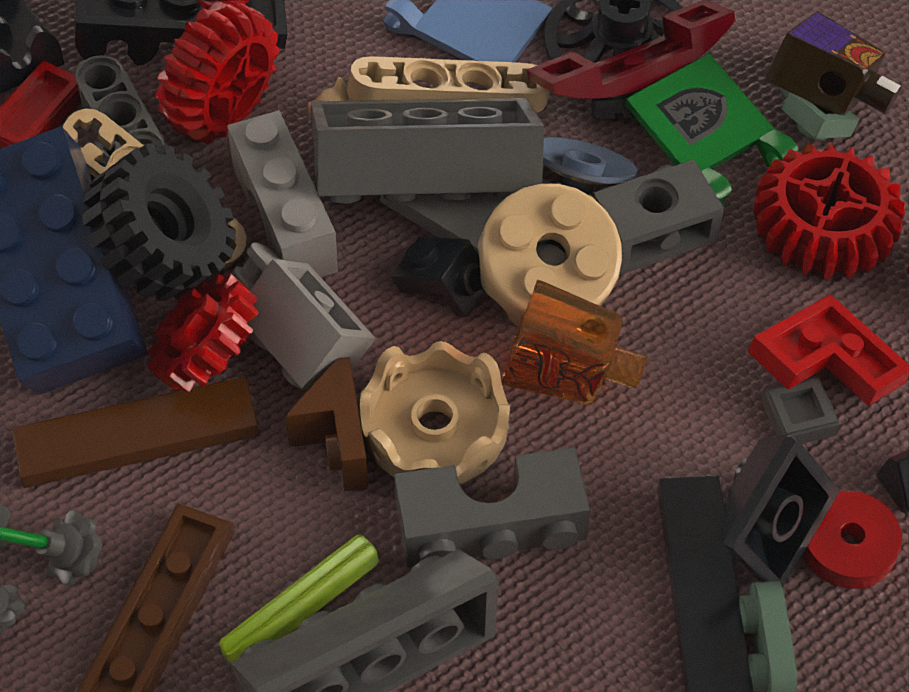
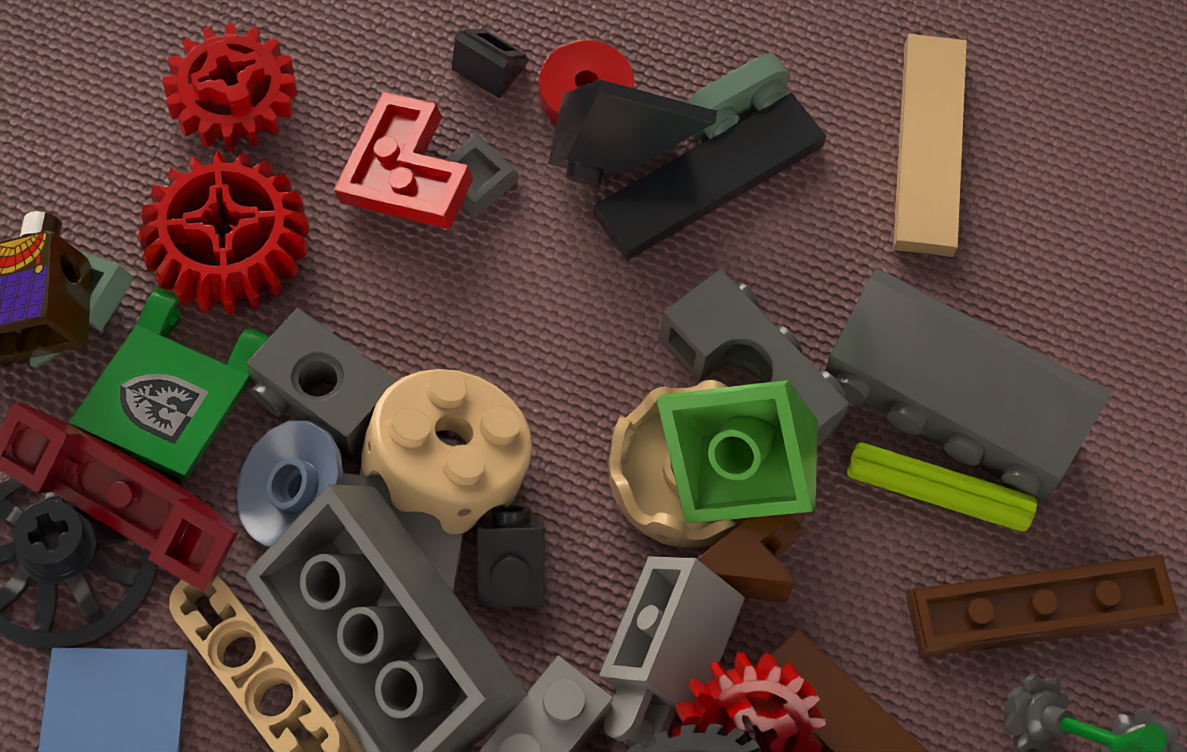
camera: 125 degrees left, 10 degrees up
(407, 415) = (741, 451): none -> bright green slope
(569, 348) = (550, 363): clear orange torso -> none

